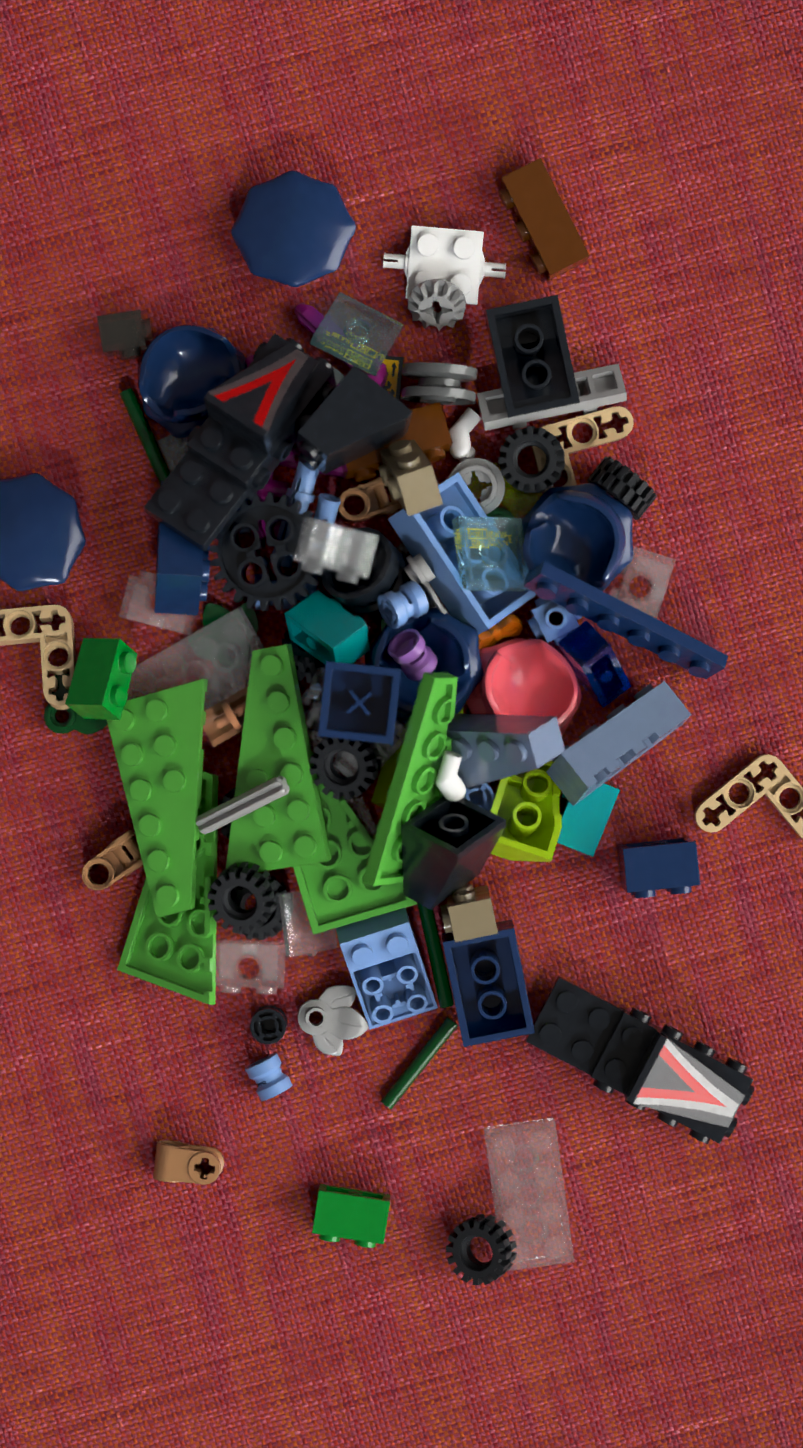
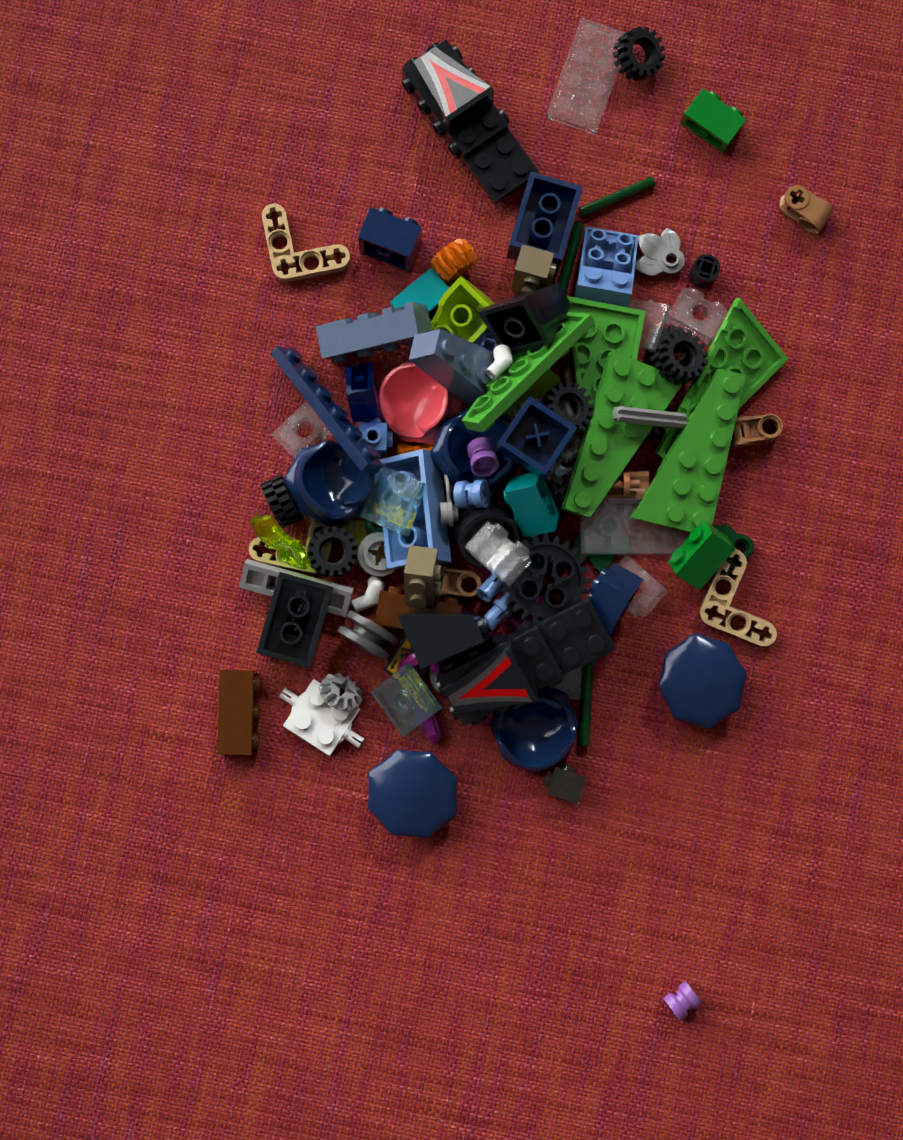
camera: 155 degrees left, 5 degrees down
(268, 1077) = (722, 237): medium blue wheel -> none
(570, 880) = (454, 260): none -> orange gear
(613, 442) = (272, 535): none -> clear neon green tile

